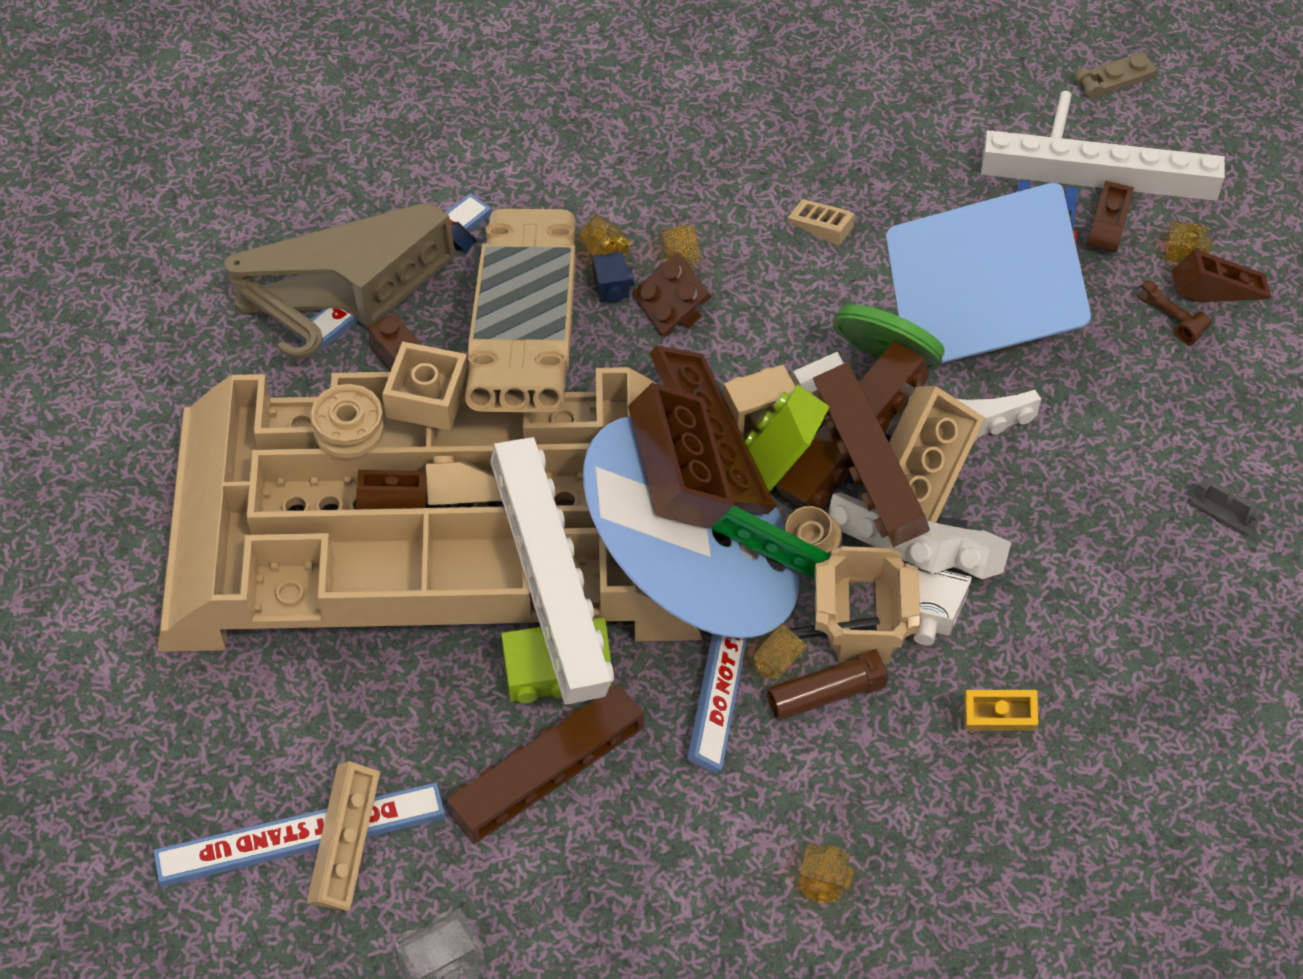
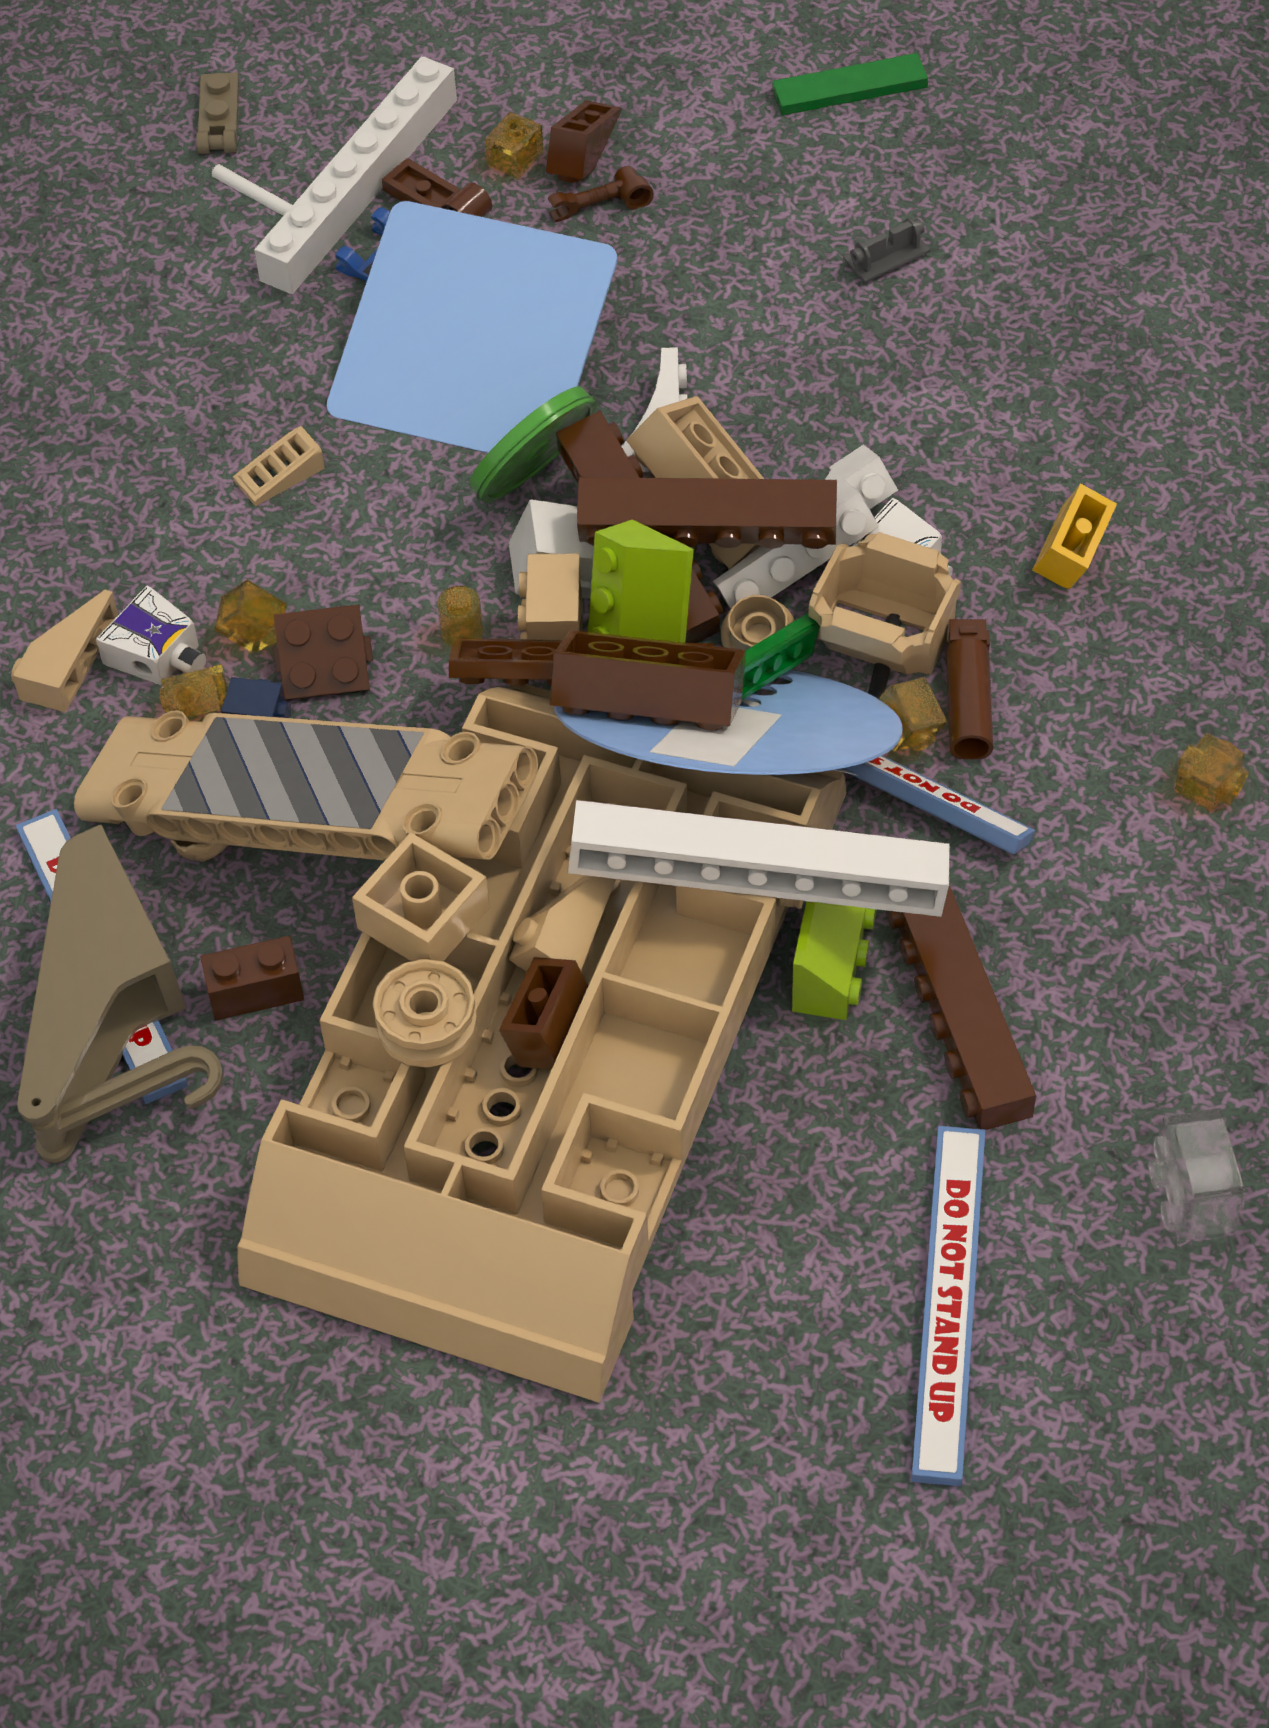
camera: 65 degrees left, 0 degrees up
(343, 836) = (979, 1247): tan slope -> none
(607, 165) = (63, 655): none -> tan slope
(643, 204) = (151, 639): none -> white torso
(738, 357) = (459, 614): none -> clear yellow brick

